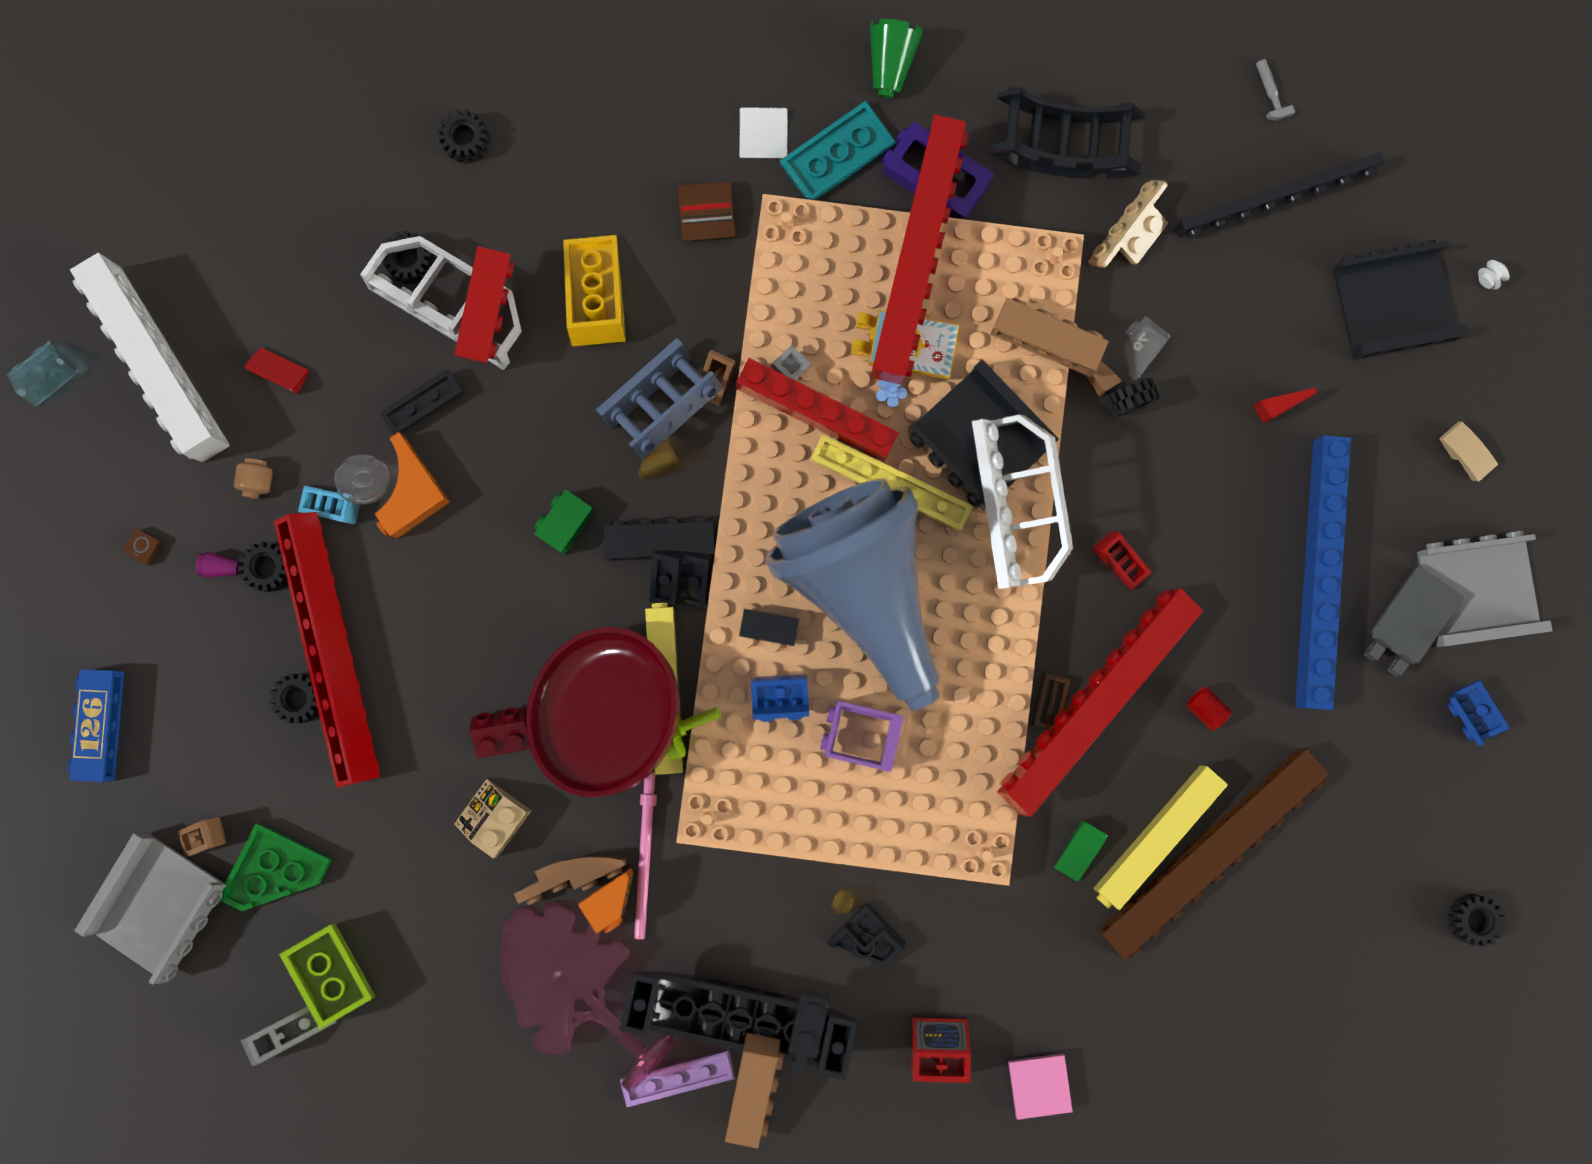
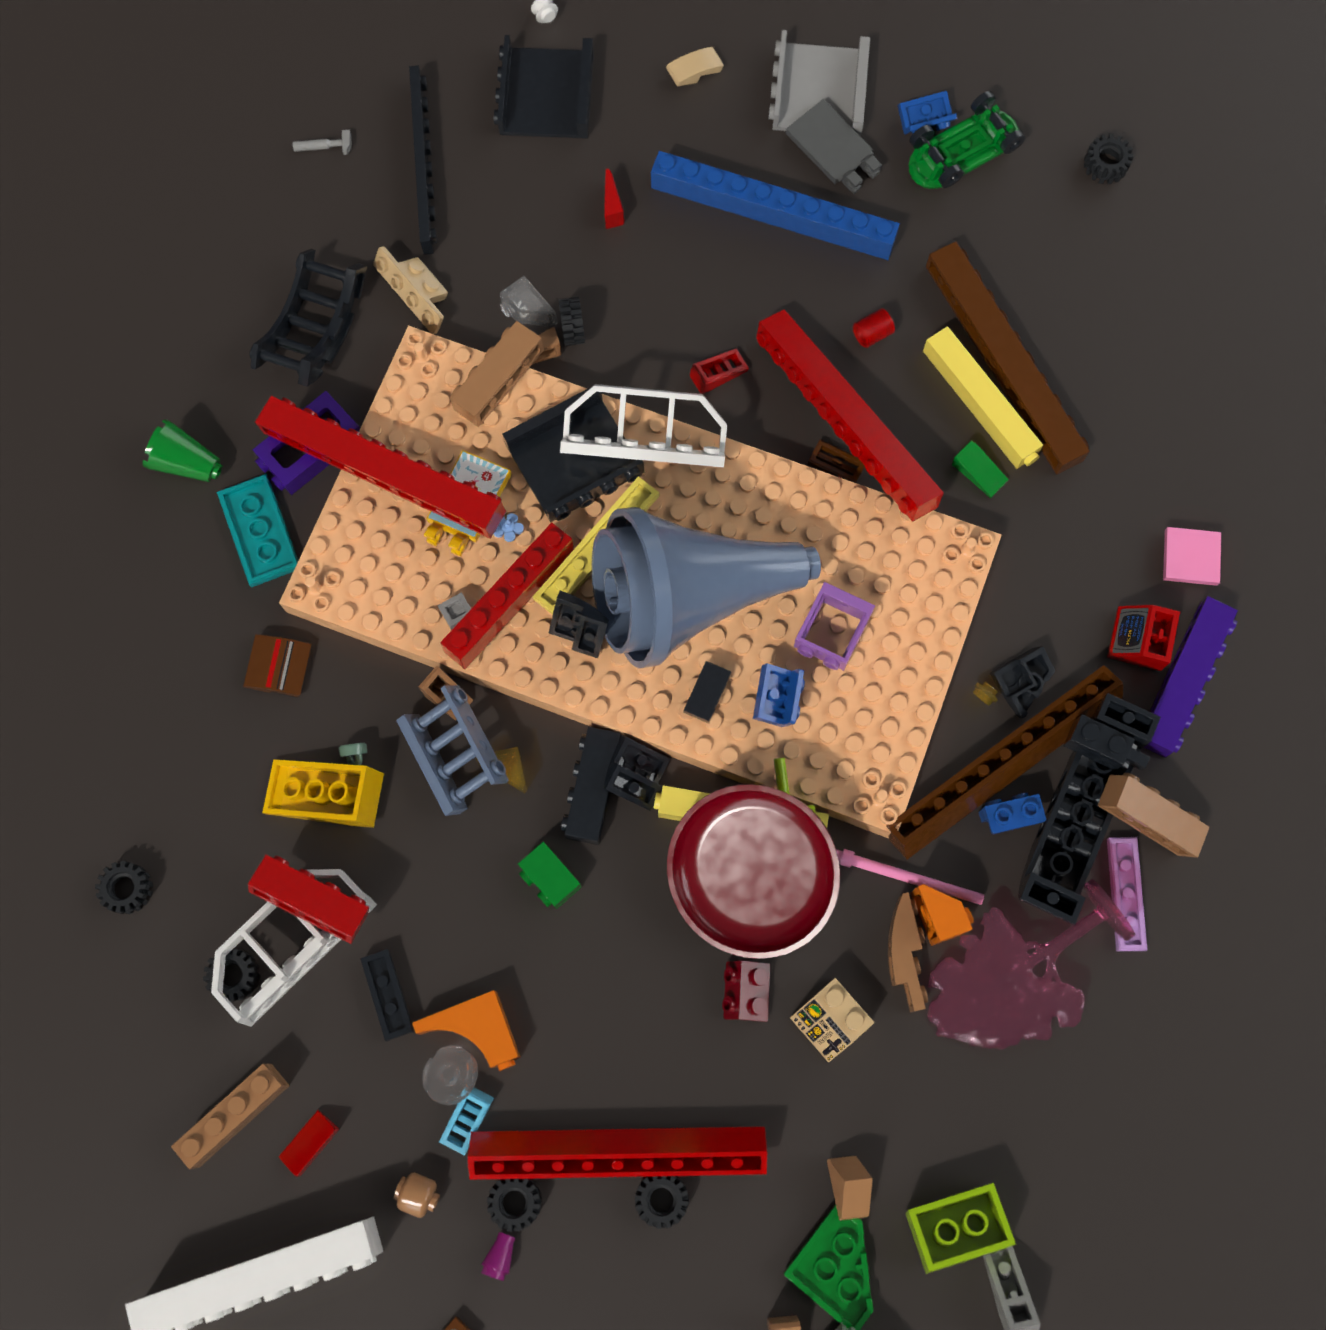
camera: 70 degrees left, 10 degrees down
(283, 294) = (230, 1116): none -> medium nougat brick
(344, 867) = (851, 1187): none -> medium nougat slope
(640, 305) = (353, 749): none -> sand green tile
(725, 952) = (1013, 814): none -> blue bracket
(763, 132) = (216, 595): white sticker -> none
(777, 935) = (1000, 764): none -> reddish brown brick
(804, 485) = (579, 623): none -> black slope
(913, 1102) = (1189, 672): none -> dark purple brick
(1449, 761) = (963, 147): none -> green piece

